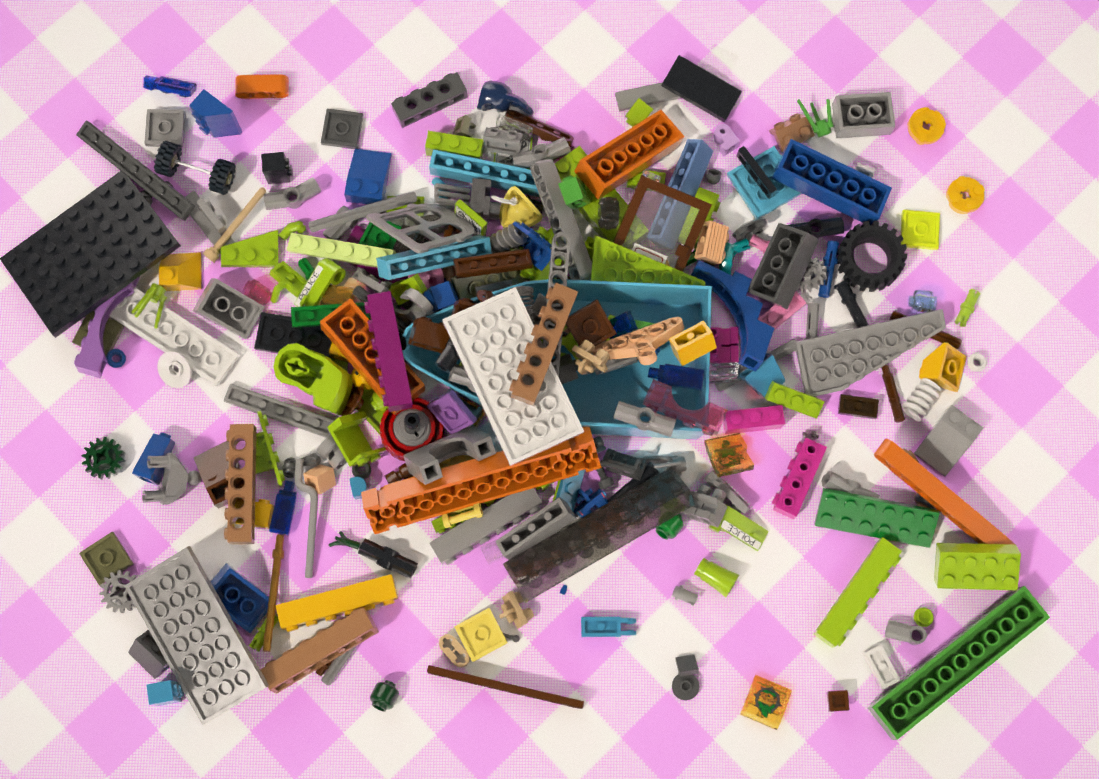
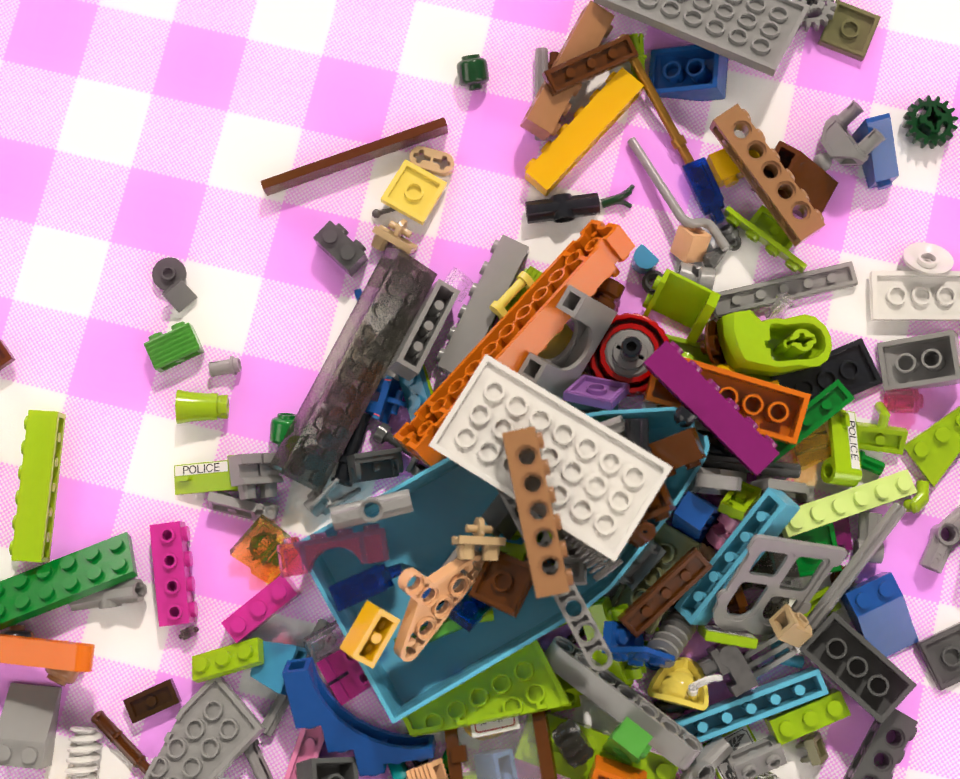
camera: 155 degrees right, 5 degrees up
(292, 399) = (780, 306): none -> clear pin
(303, 639) = (590, 64): none -> reddish brown tile
(405, 153) = (857, 667): none -> dark grey brick
(410, 353) = (684, 416): none -> black hinge
(424, 199) = (791, 626): none -> tan brick
(556, 626) = (341, 248): none -> dark grey brick
(605, 627) = (288, 282): dark azure hinge -> none
(711, 630) = (173, 347): none -> bright green brick
(766, 702) = (74, 310): clear yellow slope -> none

